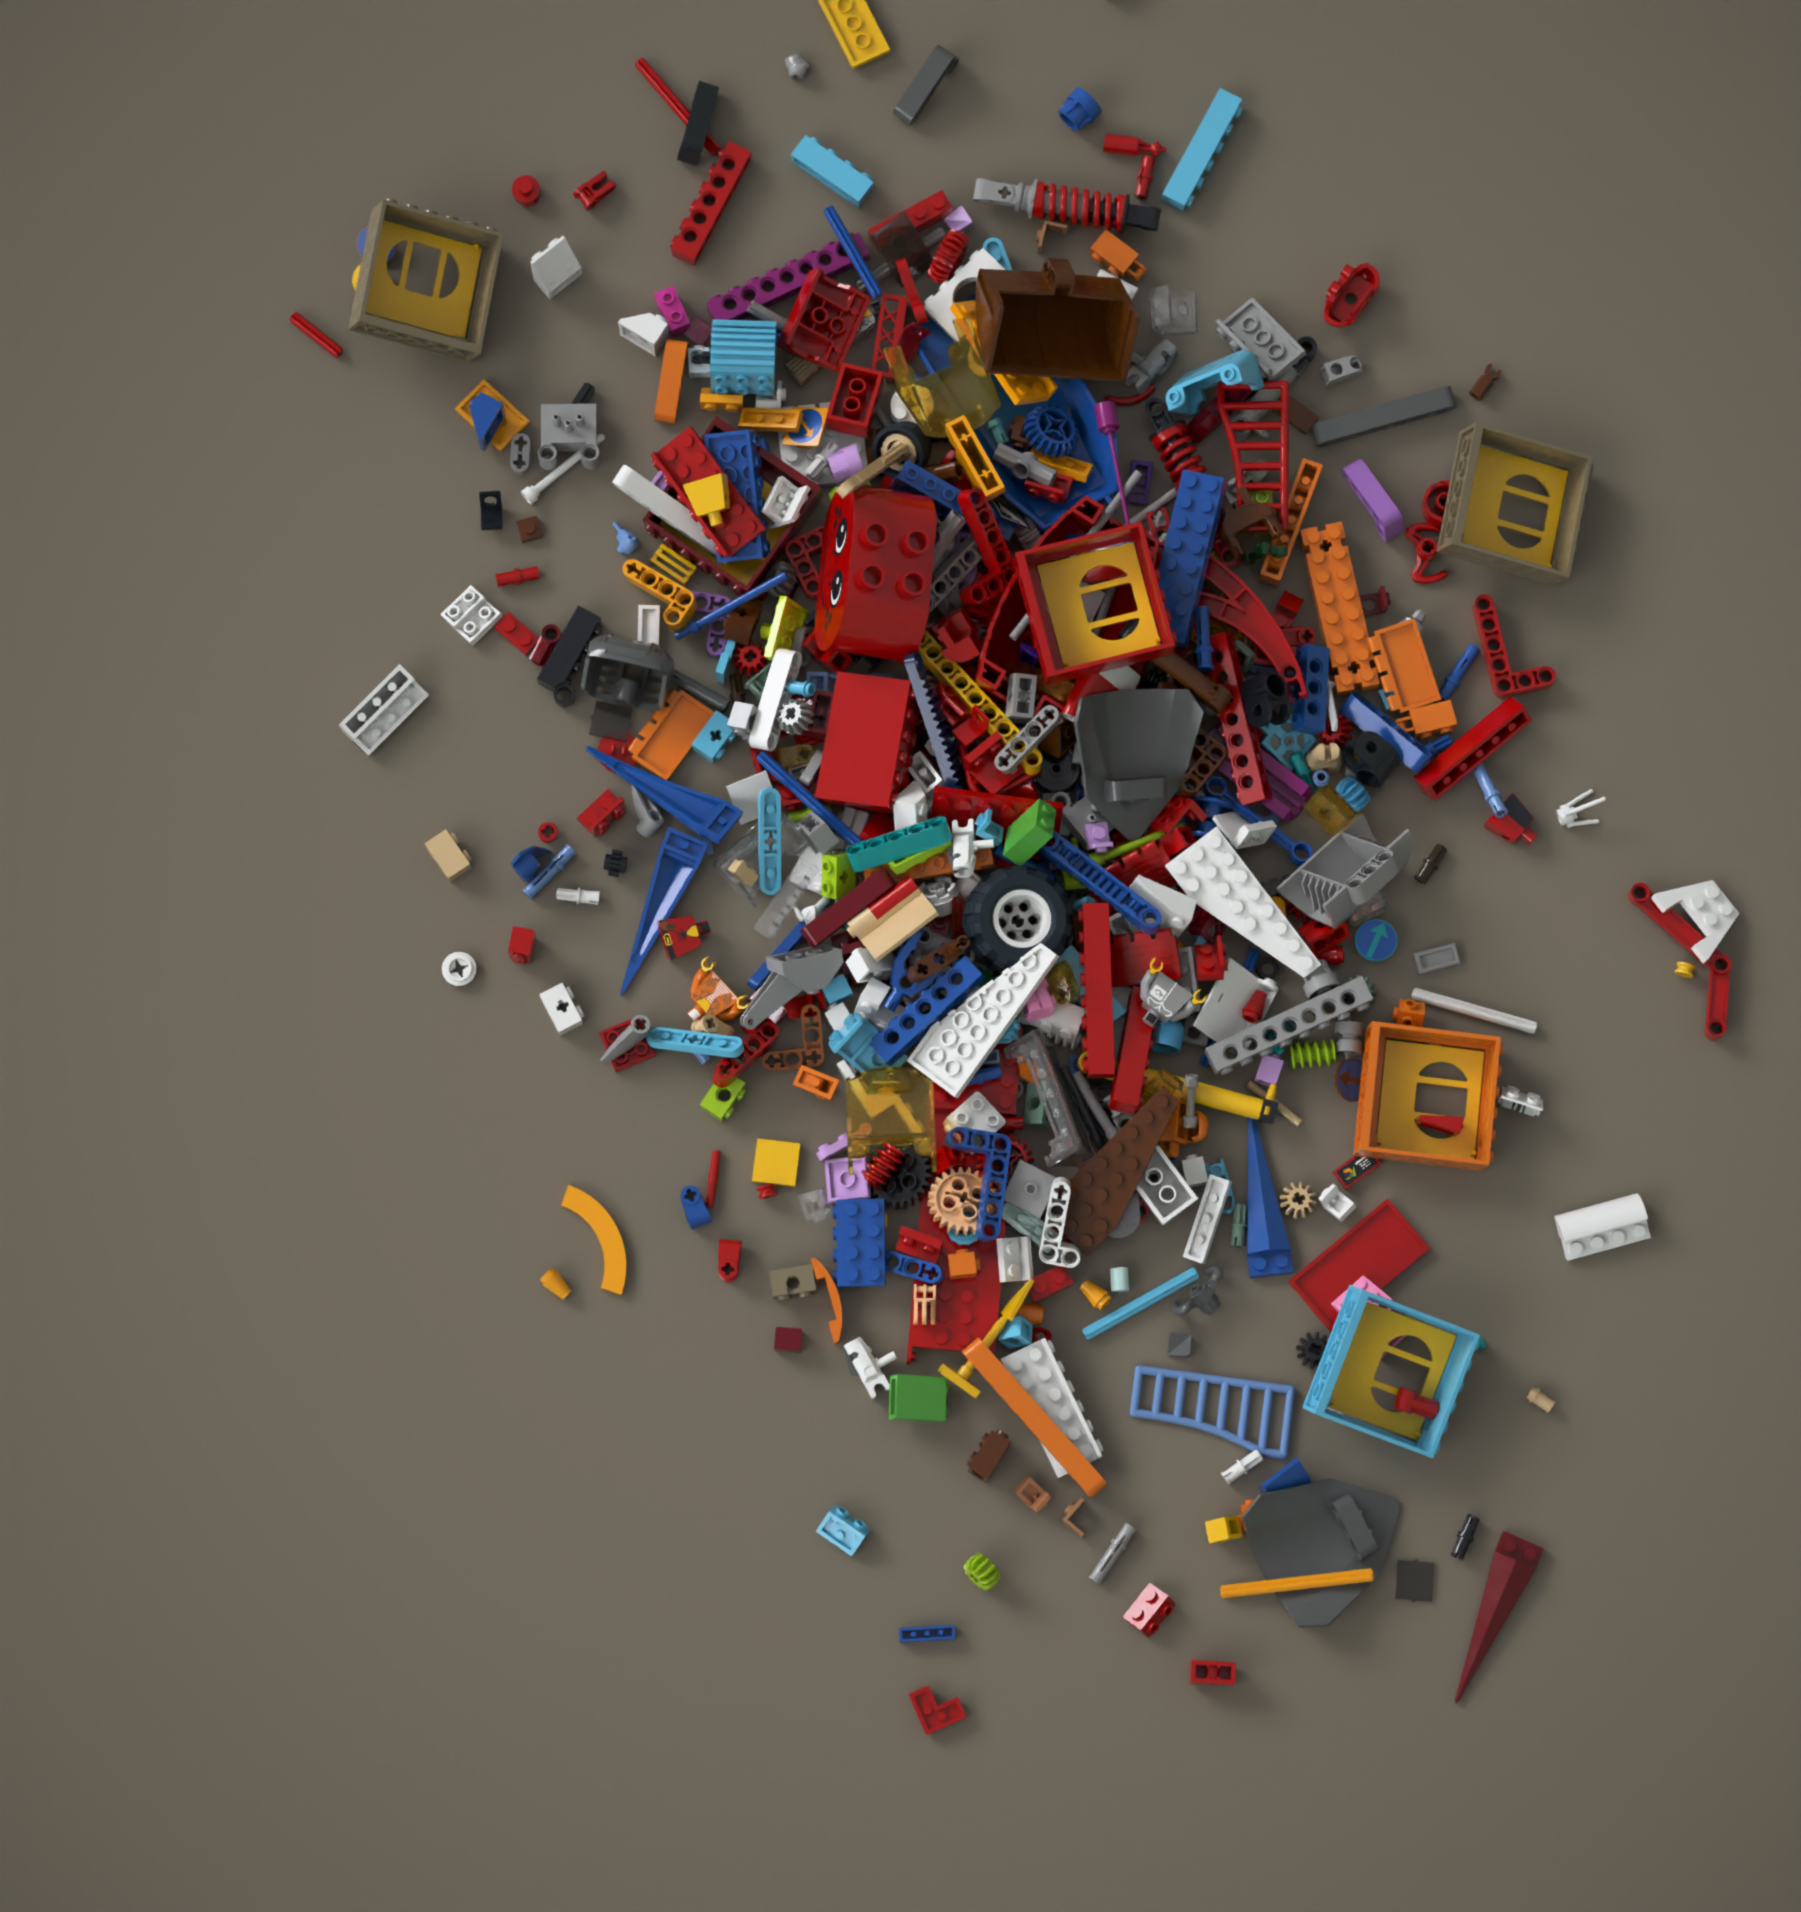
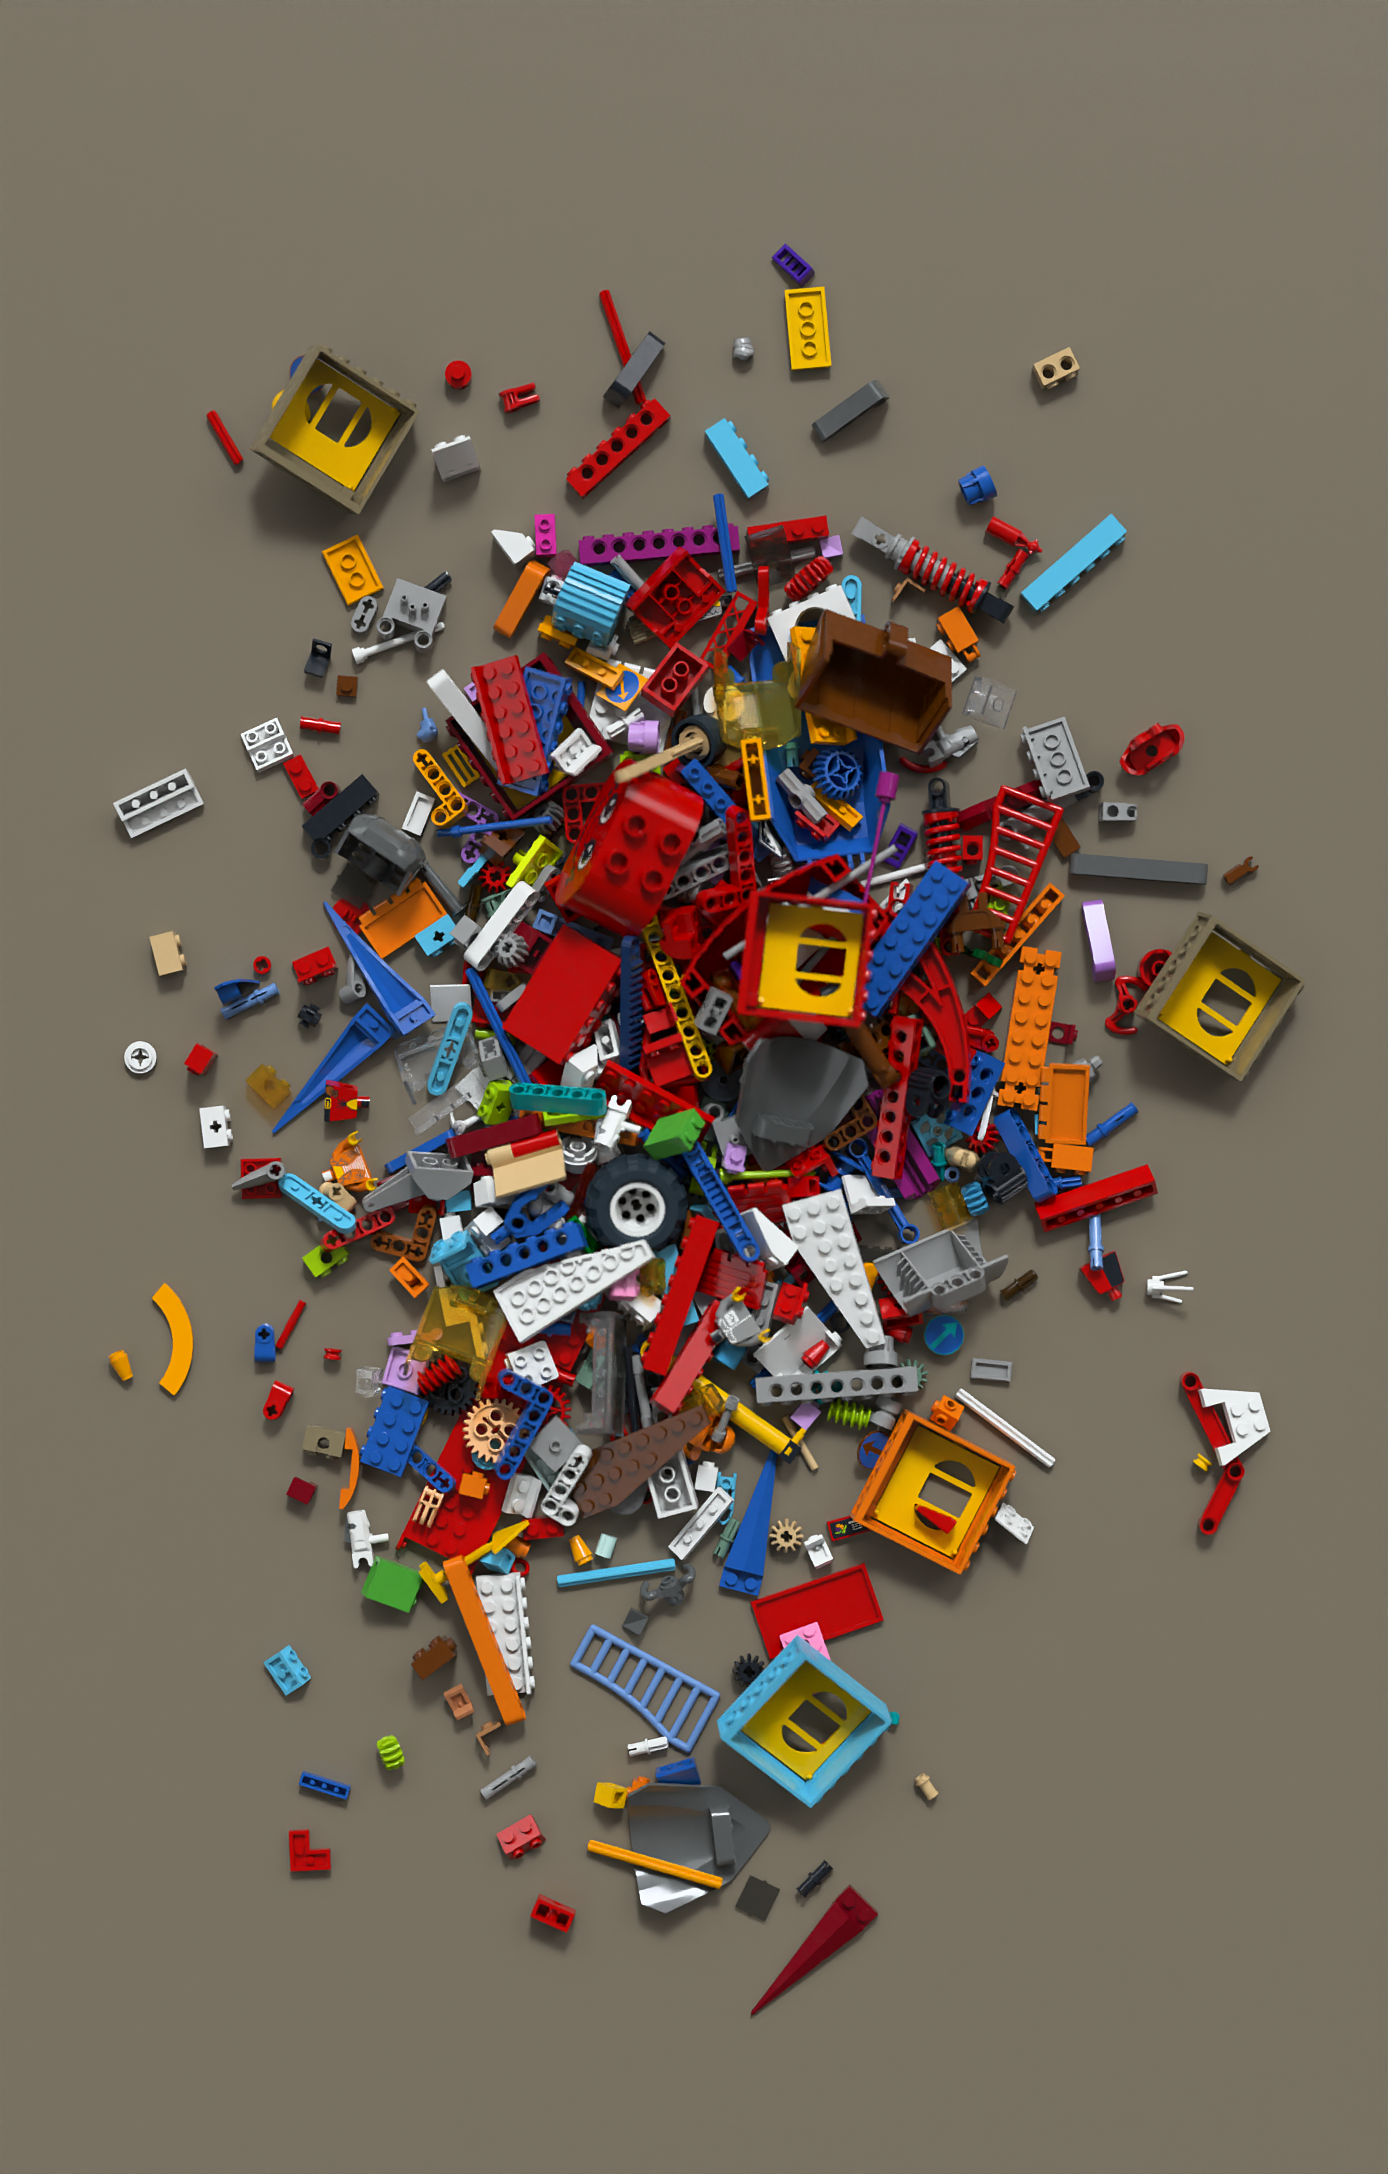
camera: 30 degrees right, 10 degrees up
(486, 416) = (342, 574): blue slope -> none
(579, 895) = (267, 1032): white axle -> none
(607, 957) = (258, 1080): none -> clear yellow brick
(709, 497) = (507, 727): yellow torso -> none
(743, 872) = (416, 1067): tan piece -> none
(776, 1162) = (350, 1331): yellow tile -> none
(801, 688) = (530, 928): medium azure pin -> none
(919, 1245) = (443, 1454): red bracket -> none
(947, 952) = (561, 1212): reddish brown beam -> none
(988, 829) = (641, 1115): medium azure bracket -> none
(1030, 742) = (702, 1048): light grey beam -> none
(1203, 648) = (892, 1028): blue pin -> none
(1213, 448) = (972, 840): none -> red brick
(1233, 369) = (1017, 781): medium azure windscreen -> none
(1411, 1402) = (812, 1750): red piece -> none
(1500, 656) = (1154, 1123): red beam -> none
(1602, 1226) = (1040, 1658): white brick -> none

